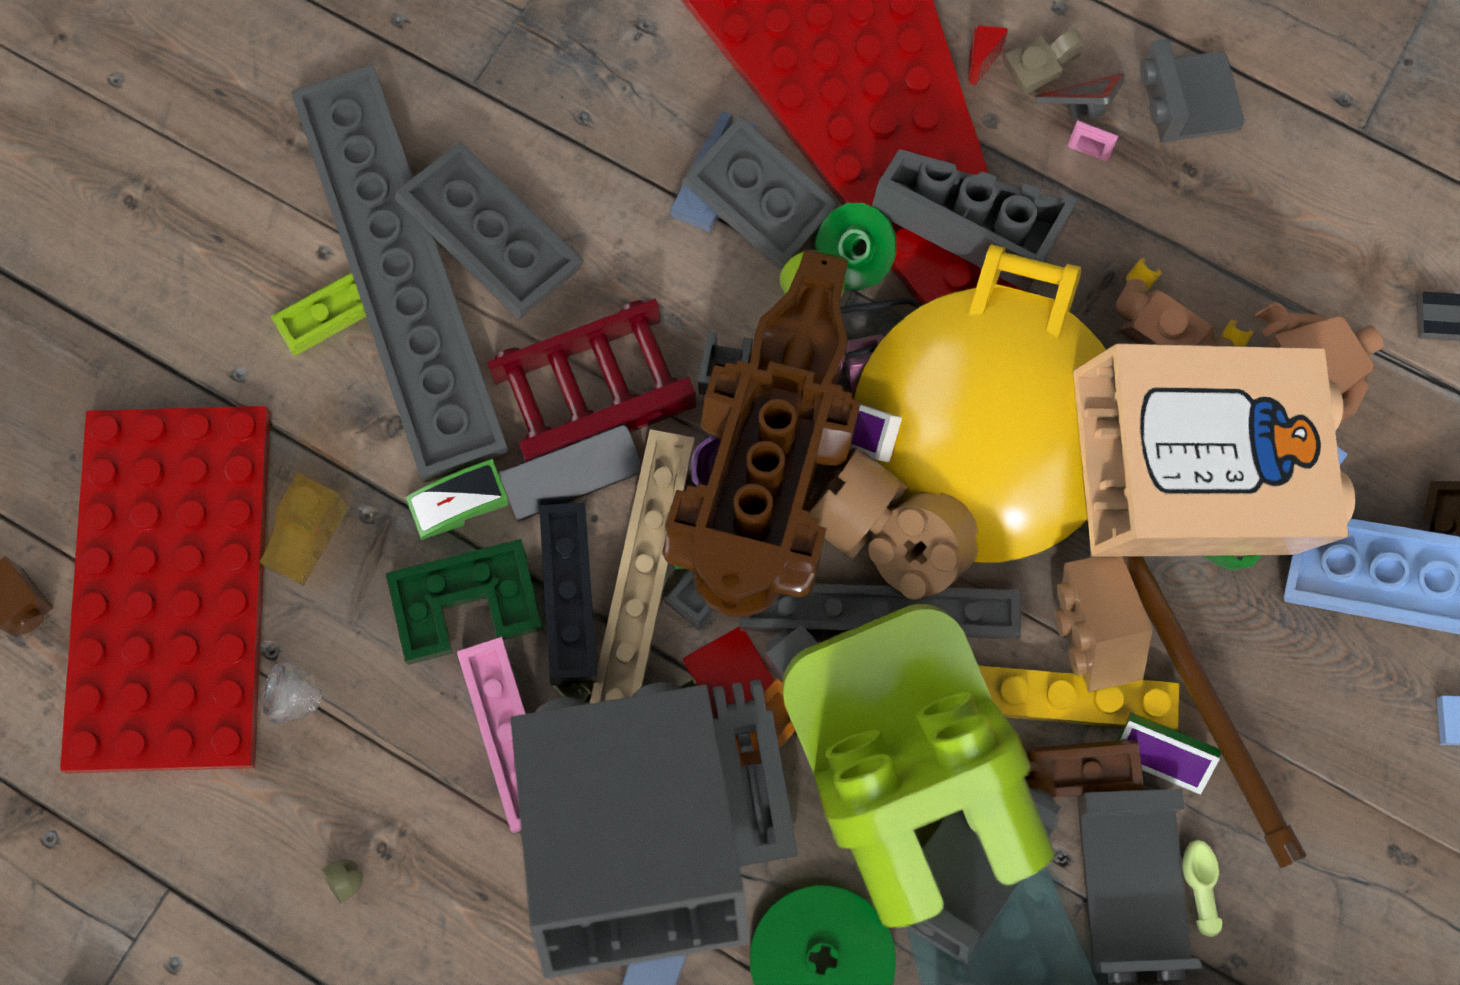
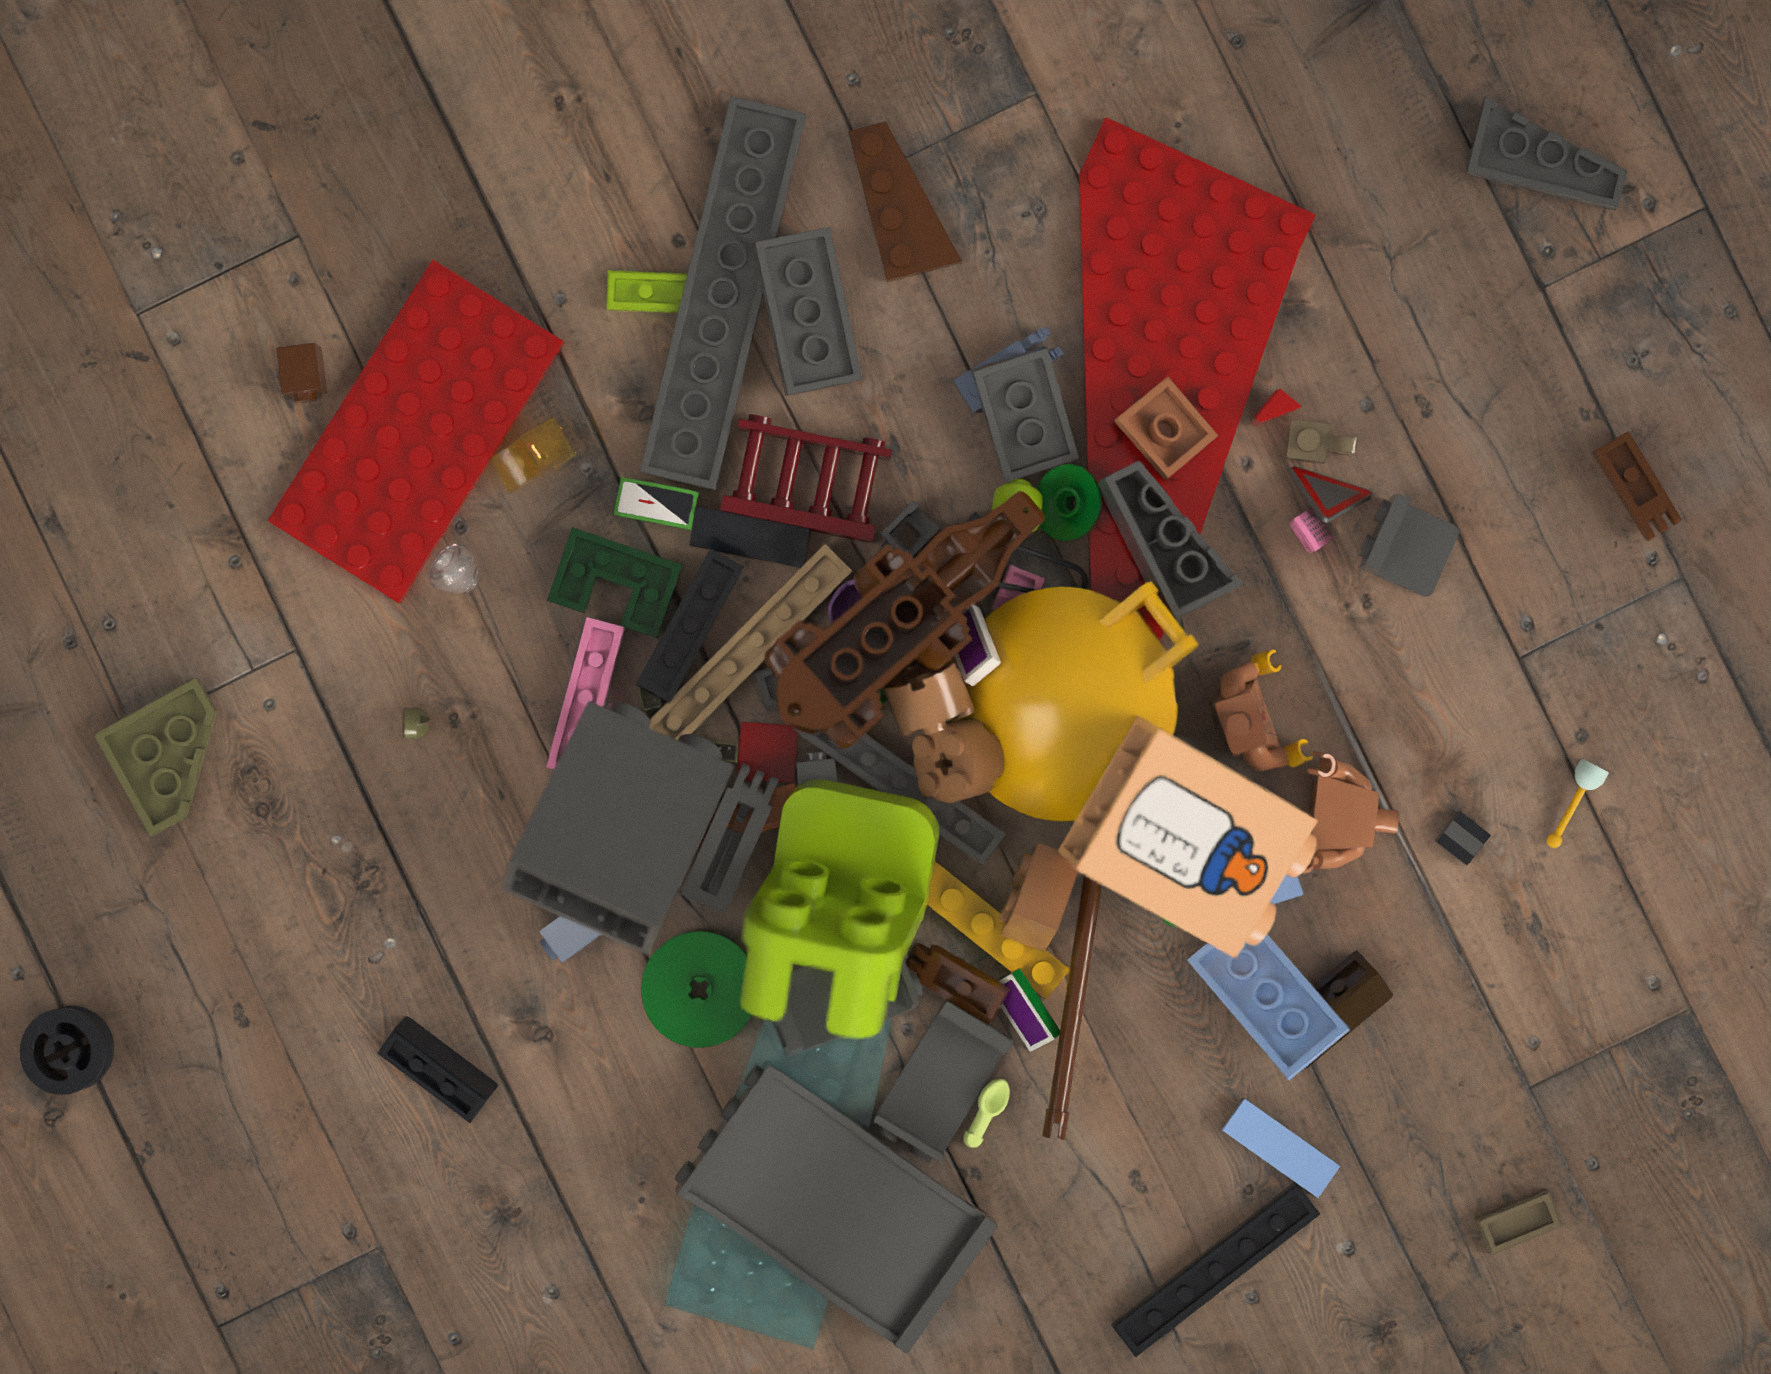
camera: 40 degrees right, 15 degrees up
(519, 100) = (901, 215): none -> reddish brown wing
(900, 119) = (1166, 428): none -> nougat slope

